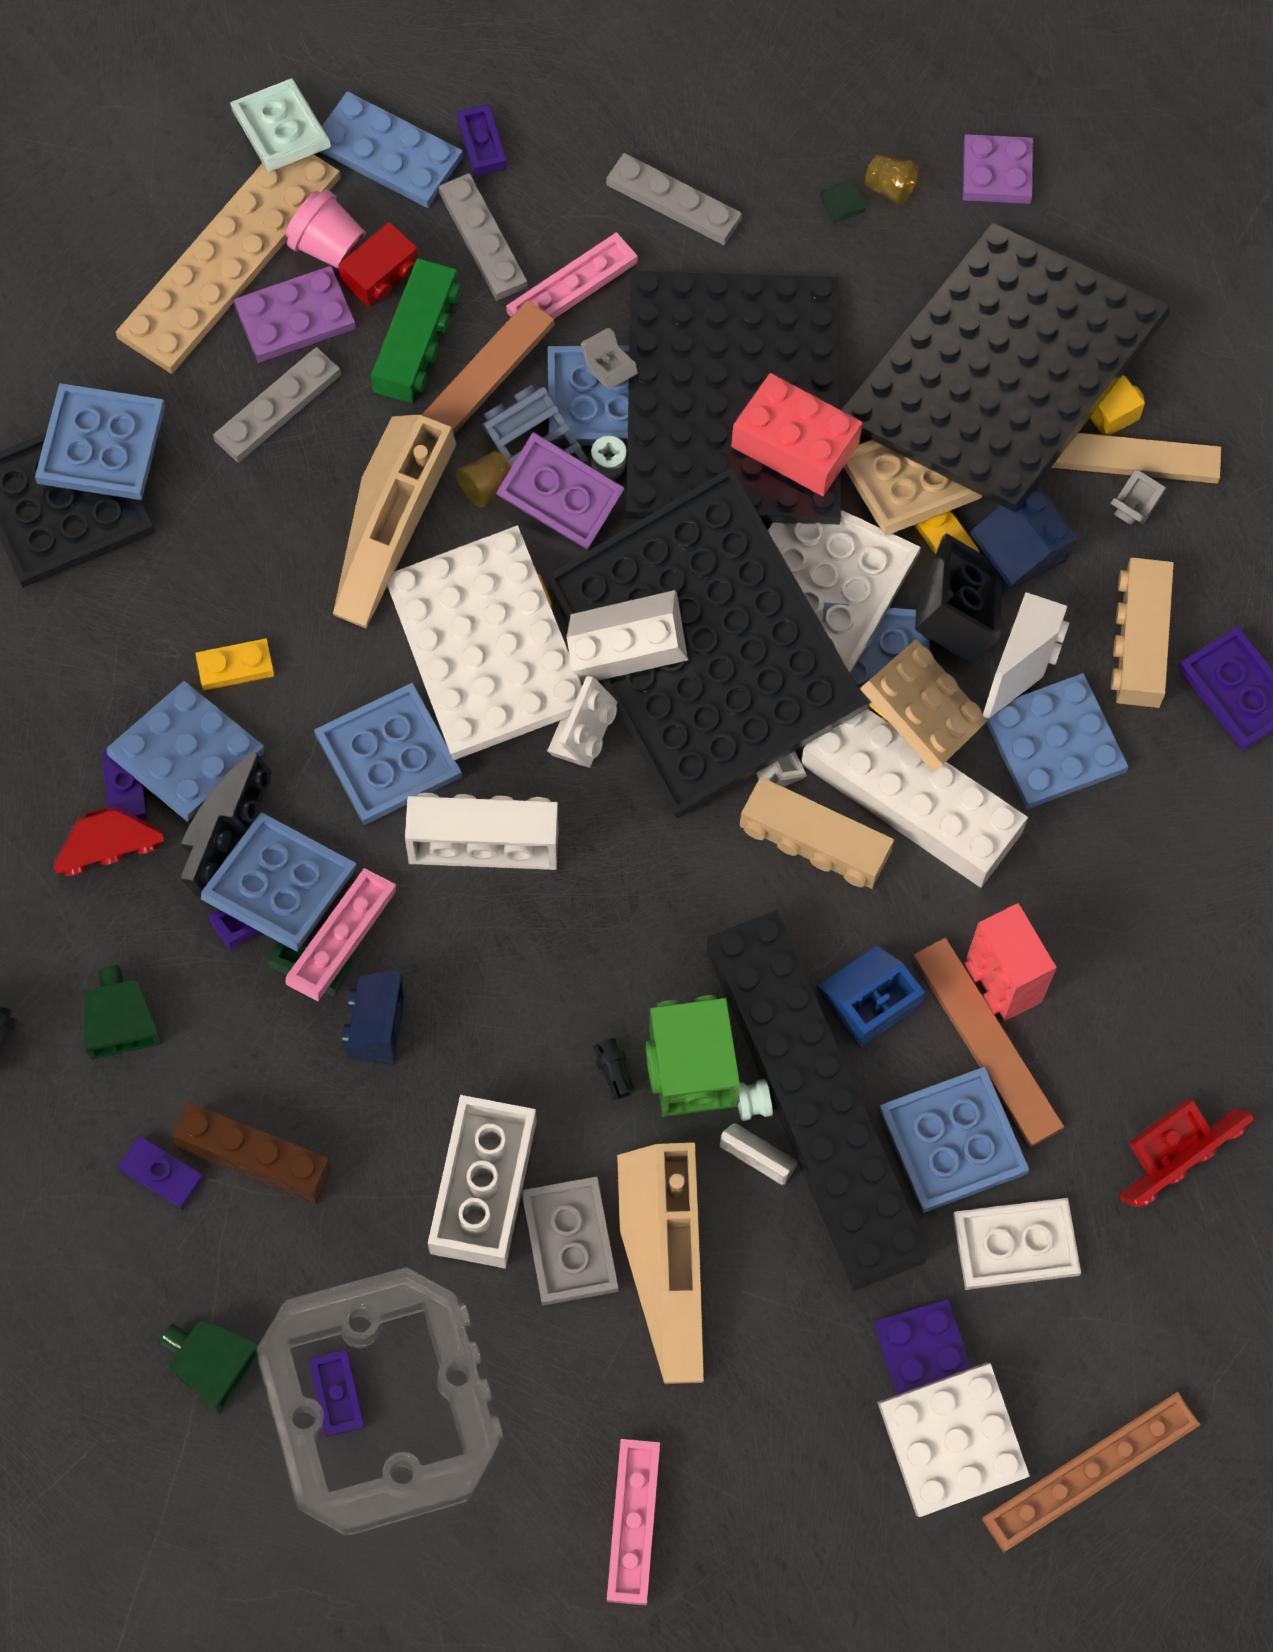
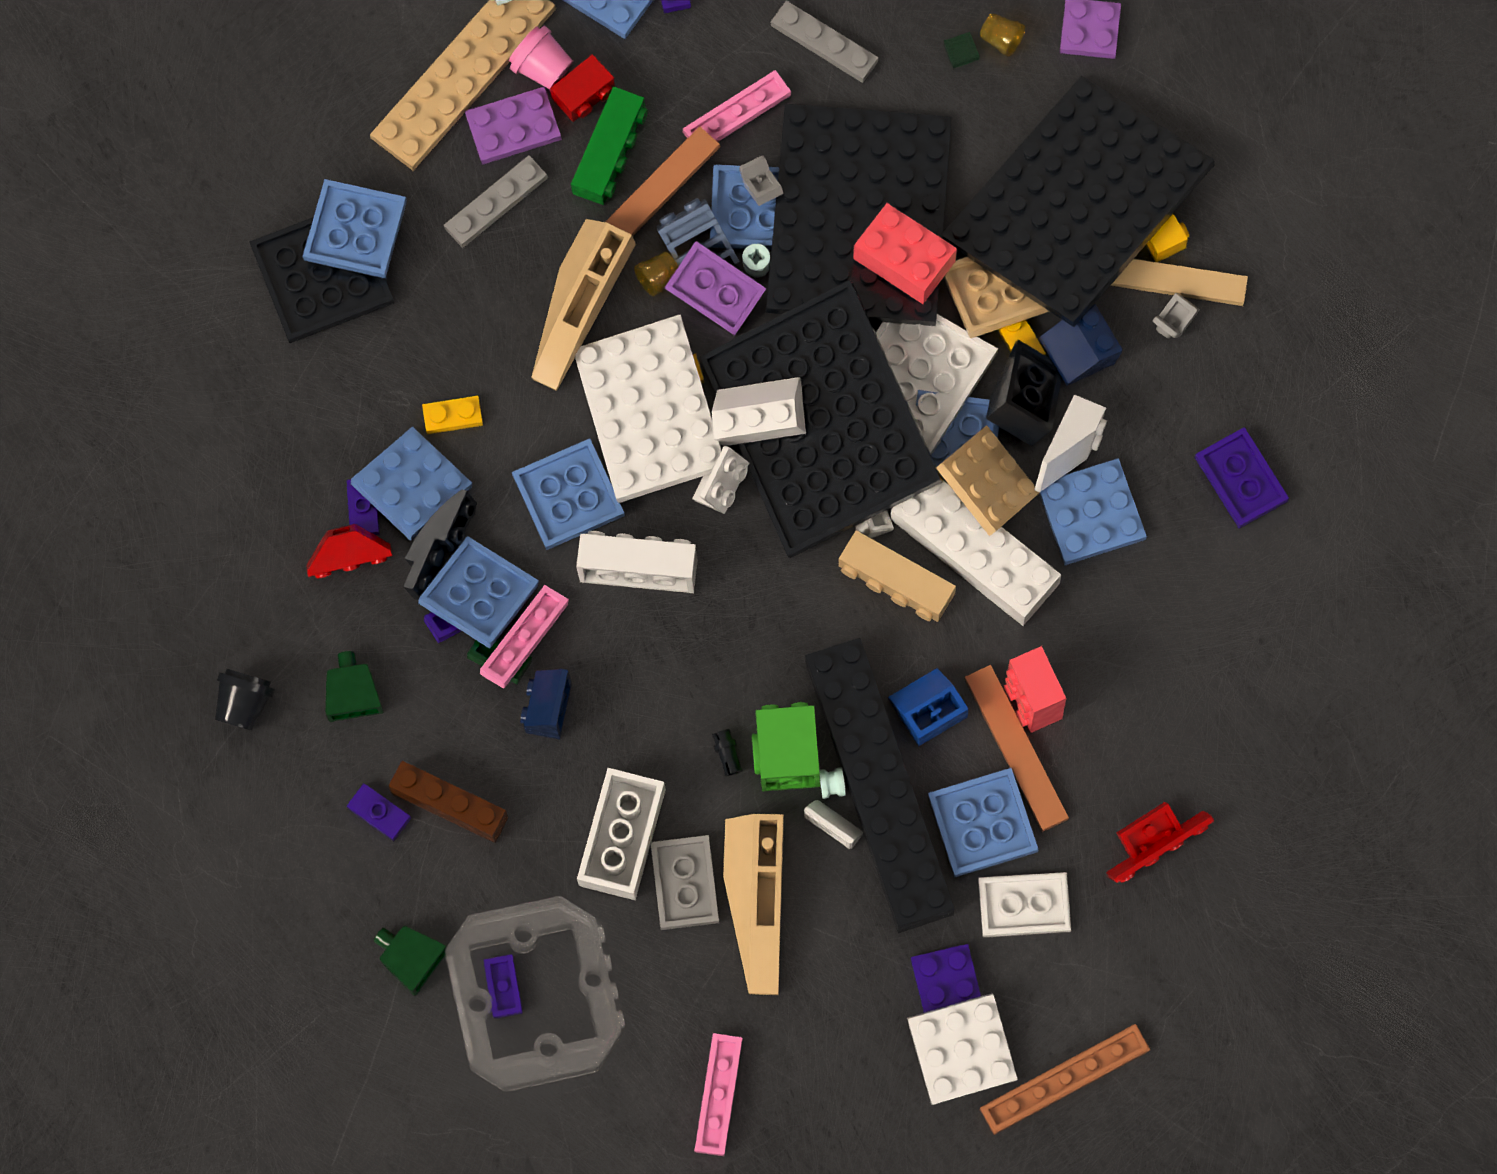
camera: 10 degrees right, 5 degrees up
(483, 237) = (667, 66): light grey plate -> none
(1144, 632) = (1169, 429): tan brick -> none

